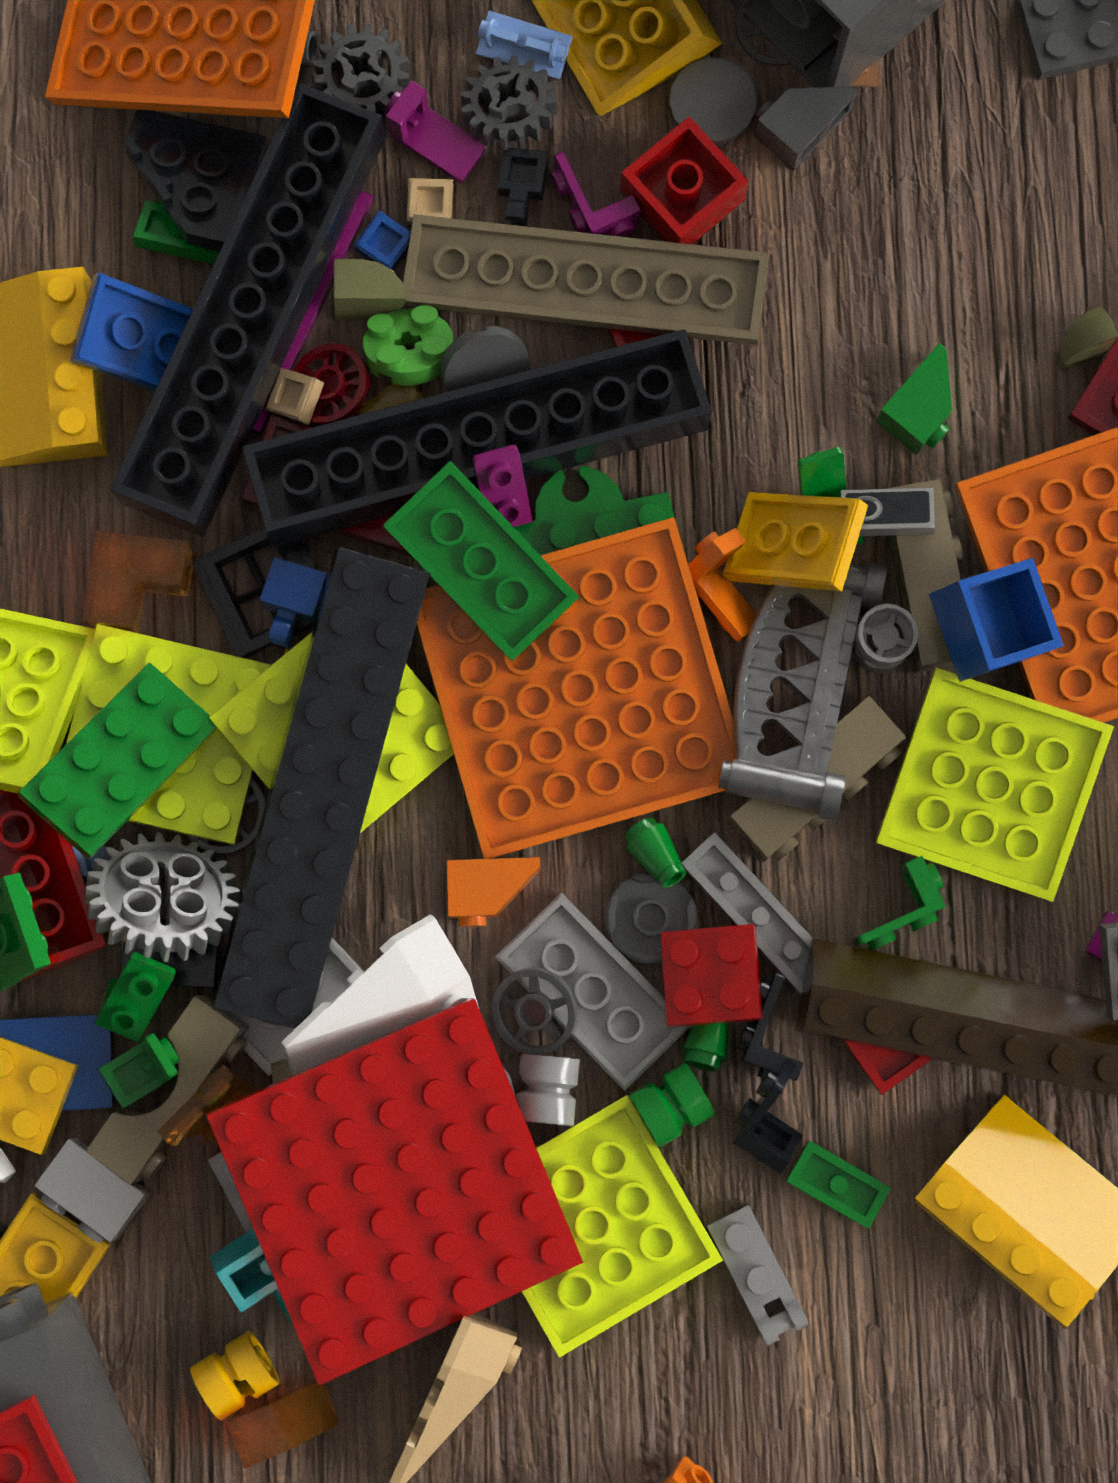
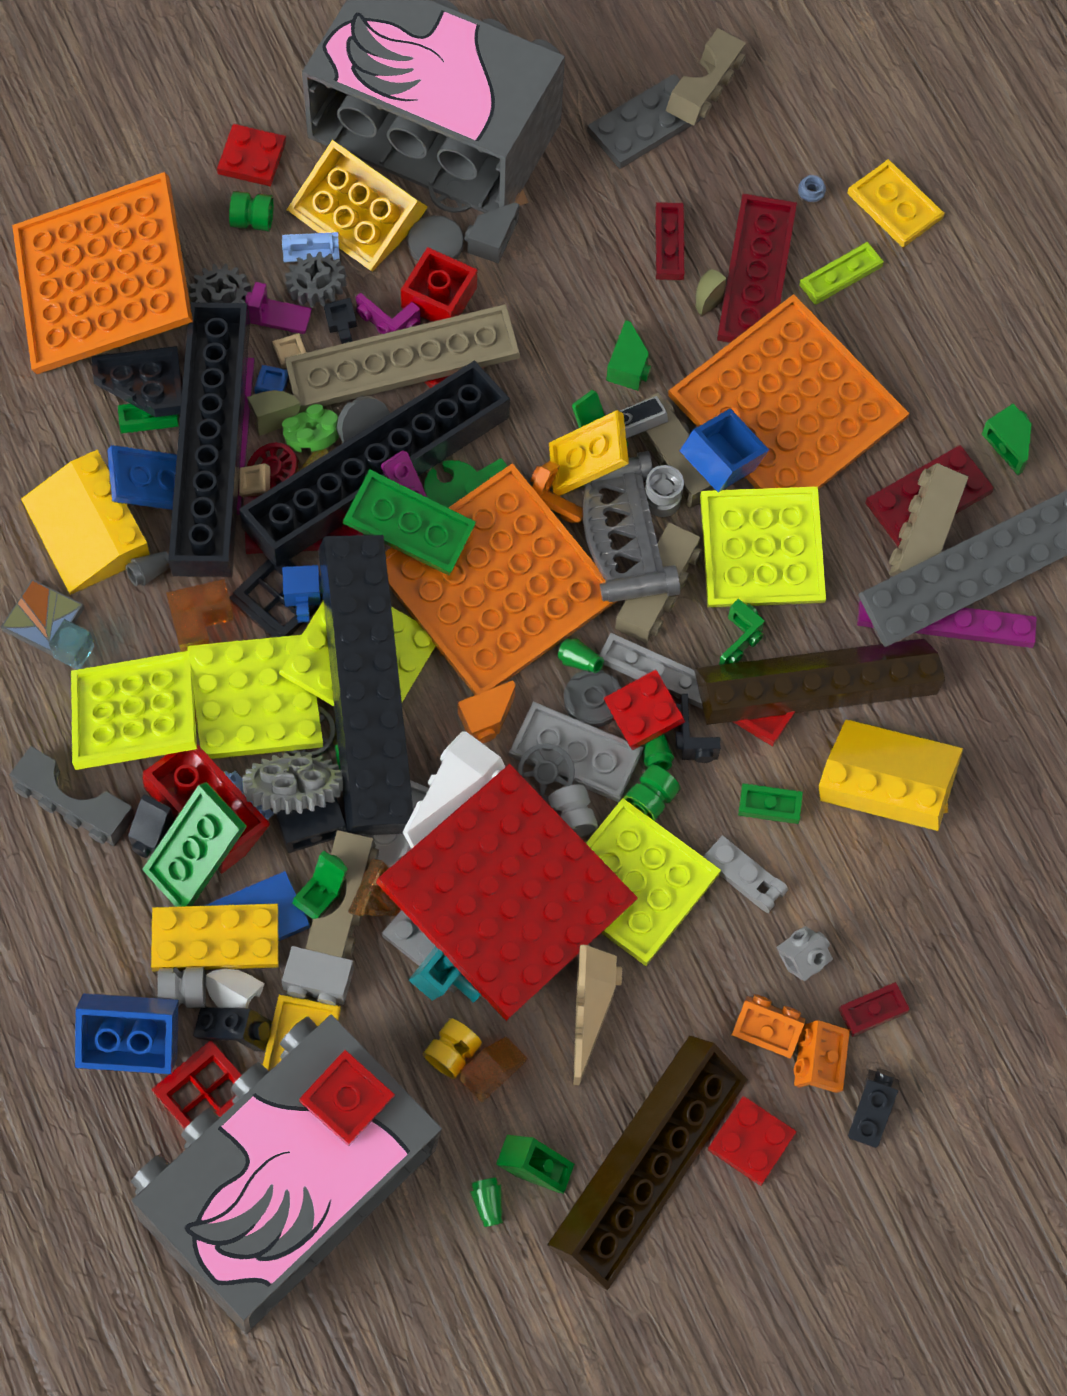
camera: 25 degrees left, 15 degrees down
(90, 473) = (147, 568): none -> dark grey cone
(118, 761) = (236, 710): green plate -> none
(134, 996) = (300, 843): green bracket -> none
(763, 1133) = (715, 792): black bracket -> none
(791, 1435) = (805, 953): none -> light grey brick
(1063, 231) = (669, 241): none -> dark red plate

